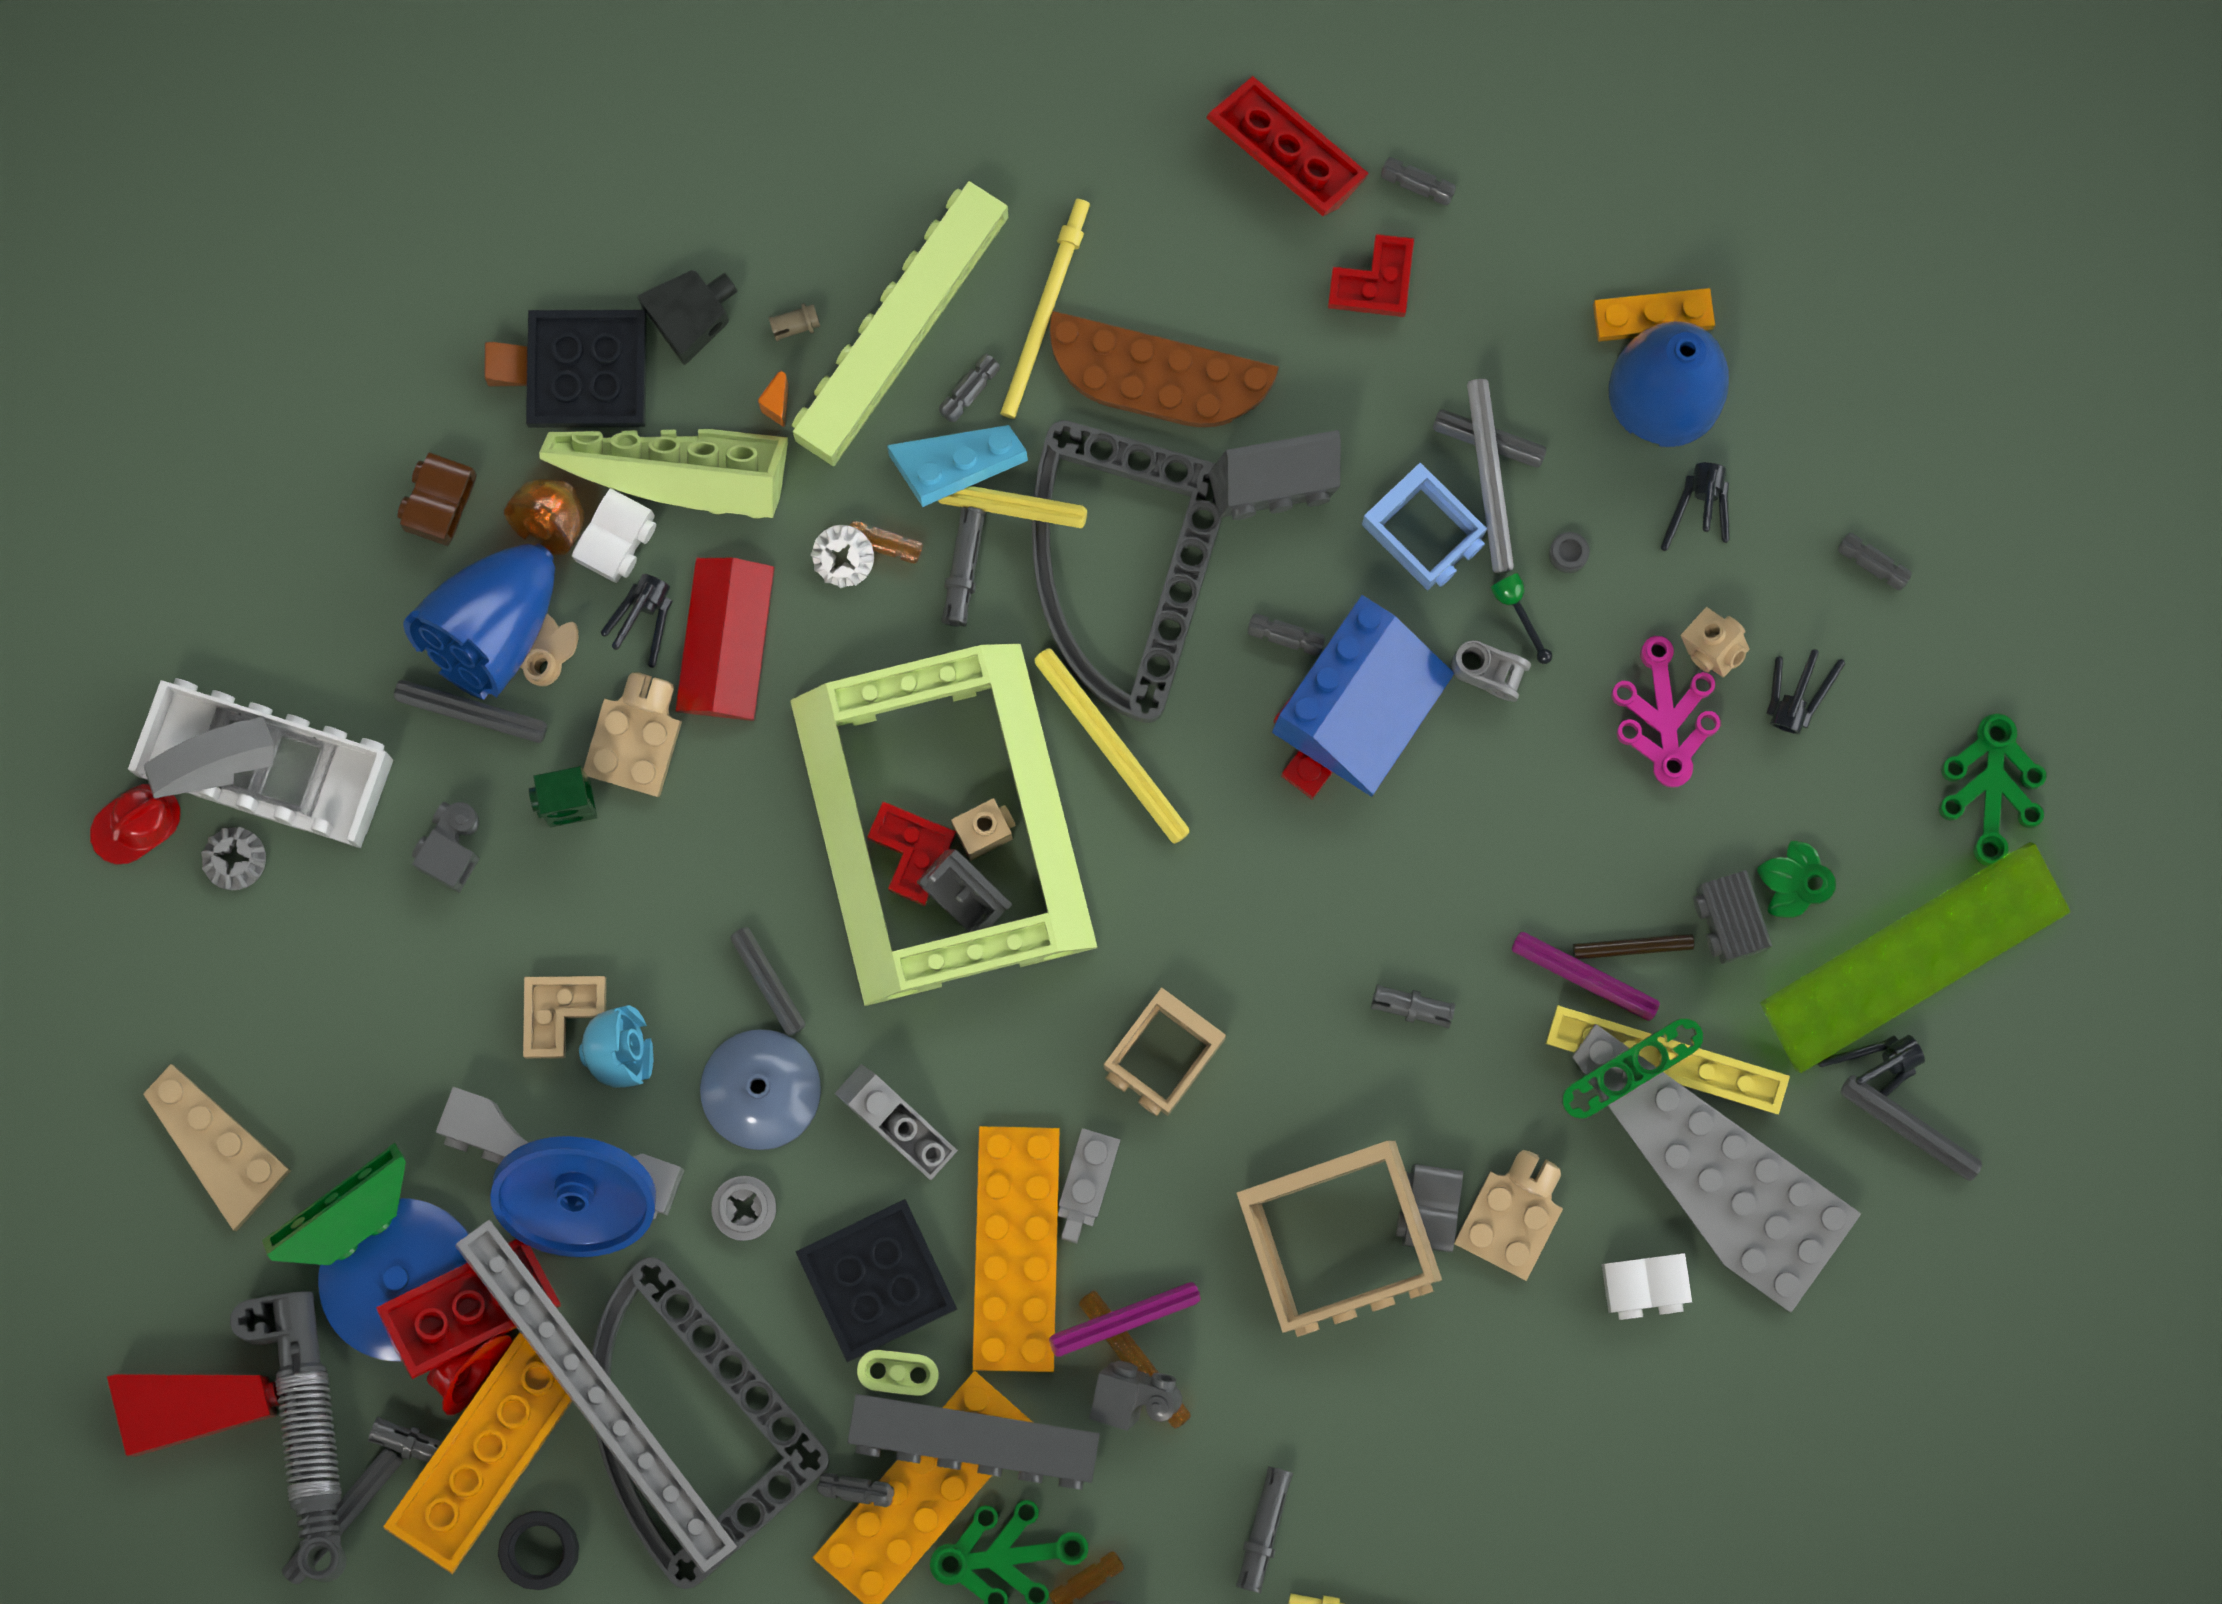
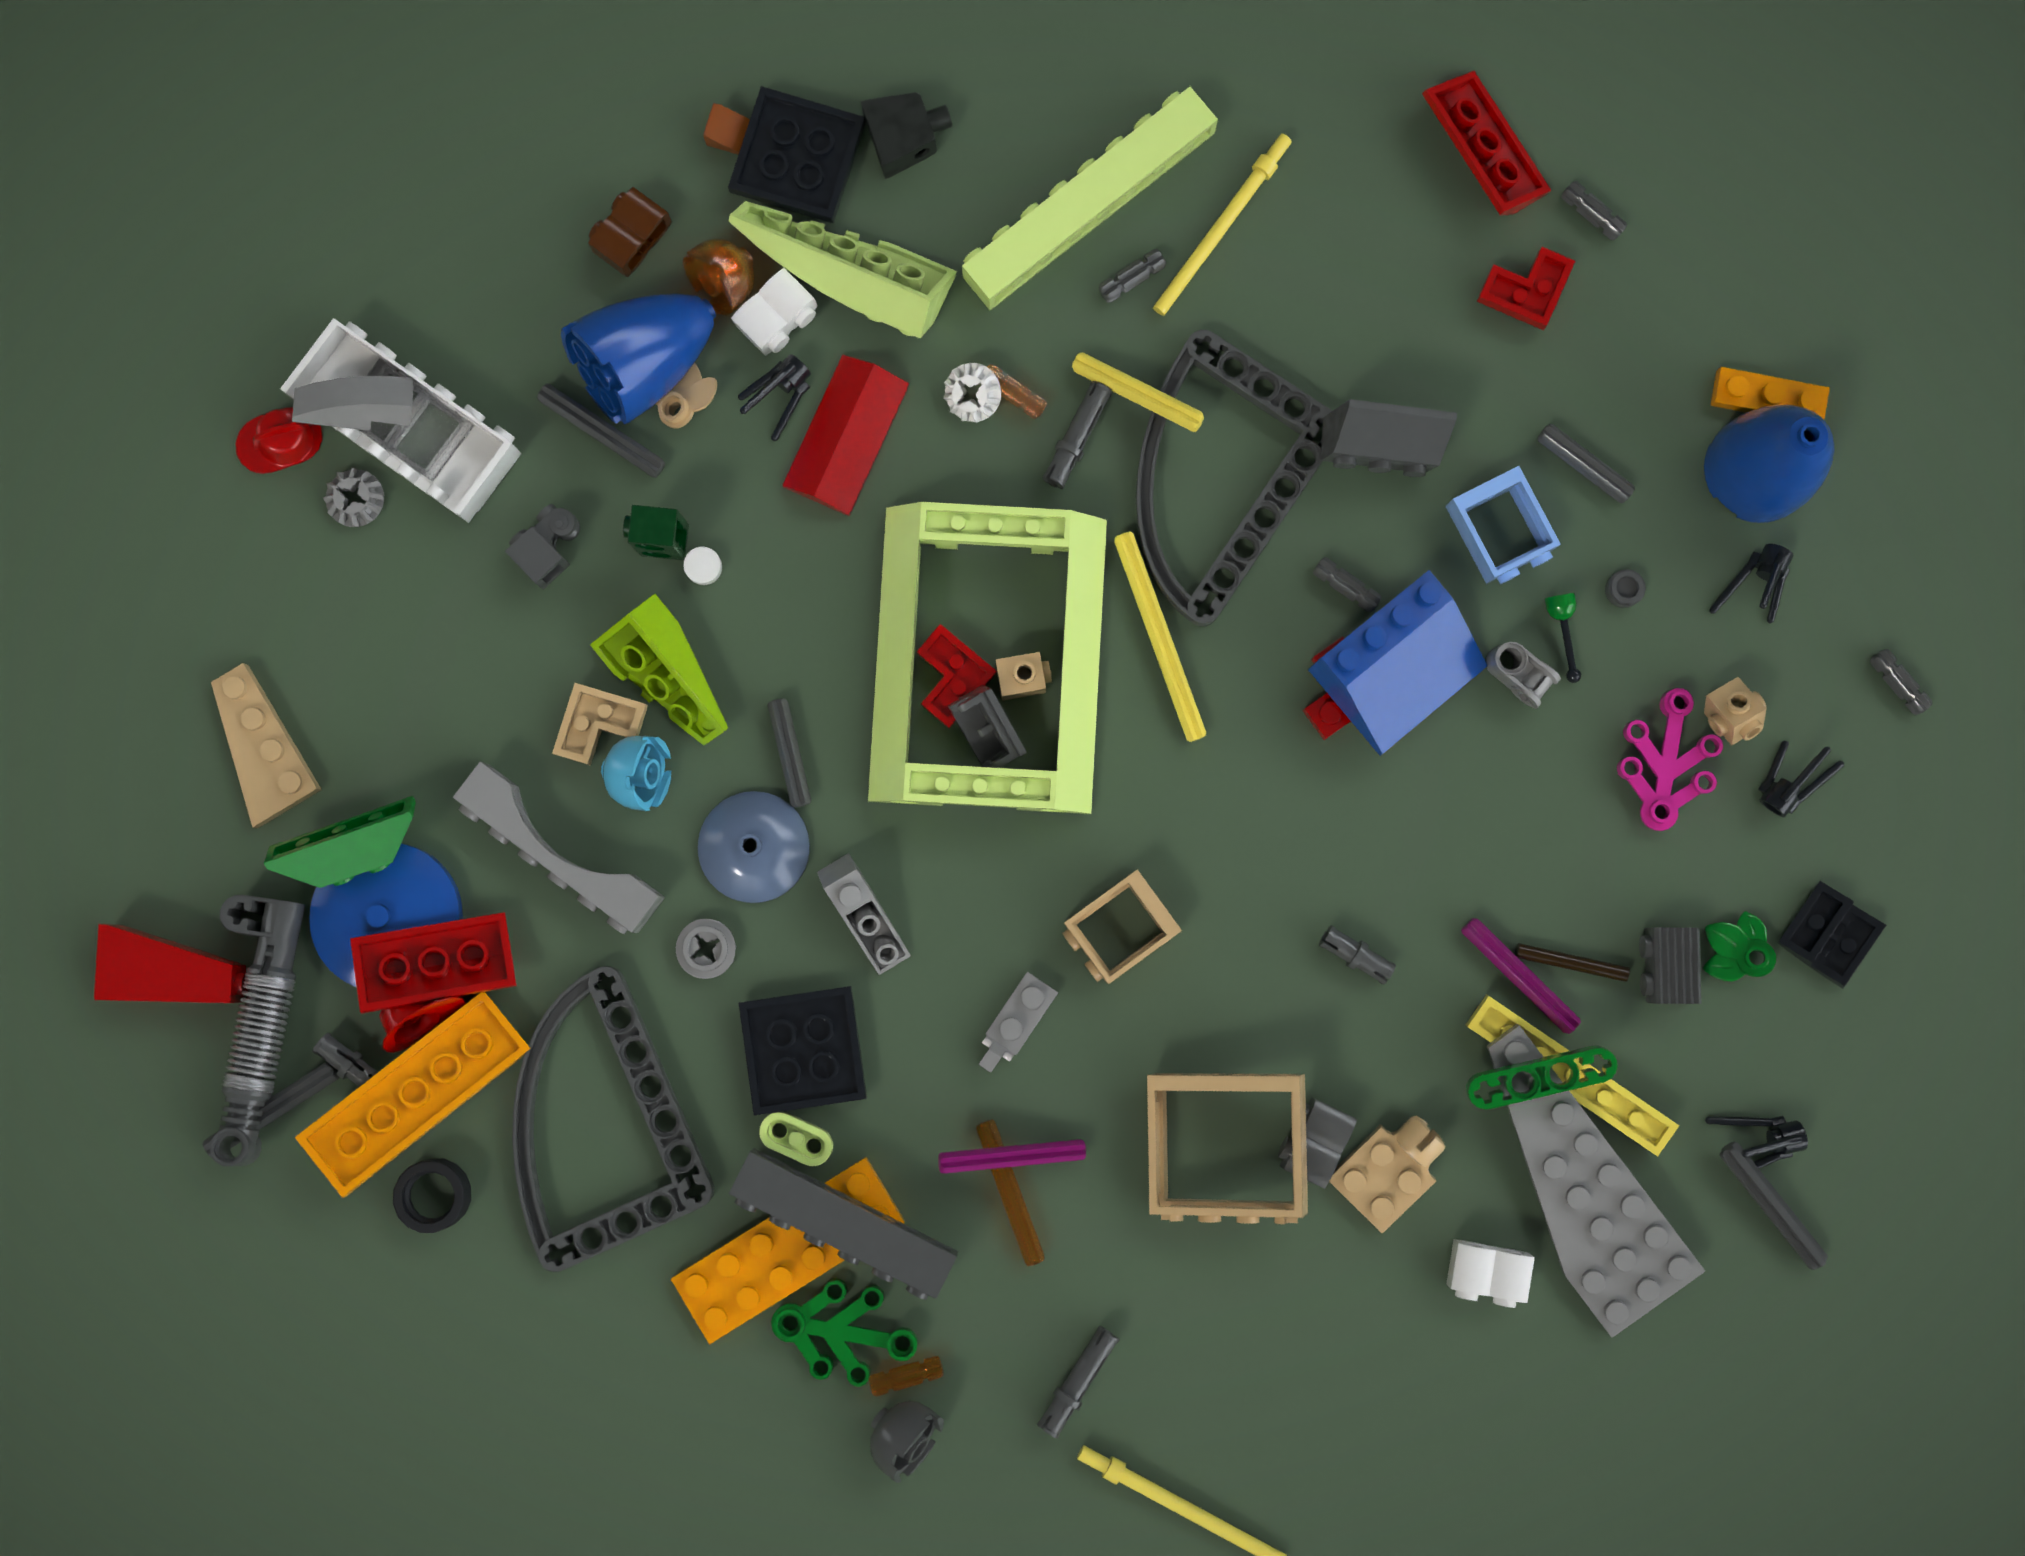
camera: 20 degrees right, 5 degrees up
(573, 1196) = (552, 894): blue dish -> none
(596, 1396) = (520, 1079): light grey plate -> none
(602, 926) = (658, 659): none -> lime wedge
(618, 817) = (702, 565): none -> white tile
(635, 737) = (738, 498): tan plate -> none
(774, 399) = (955, 232): orange slope -> none
(794, 322) = (994, 169): dark tan pin -> none
(855, 1489) = (726, 1232): dark grey axle -> none
(956, 461) = (1100, 338): medium azure wing -> none
(1016, 1249) = (935, 1061): light orange plate -> none
(1124, 1390) = (993, 1221): dark grey brick -> none
(1157, 374) = (1304, 314): dark orange plate -> none
(1490, 475) = (1577, 496): light grey axle -> none
(1885, 837) = (1831, 934): none -> black slope
(1915, 957) = (1826, 1052): clear neon green plate -> none
(1994, 783) = (1947, 917): green plant -> none

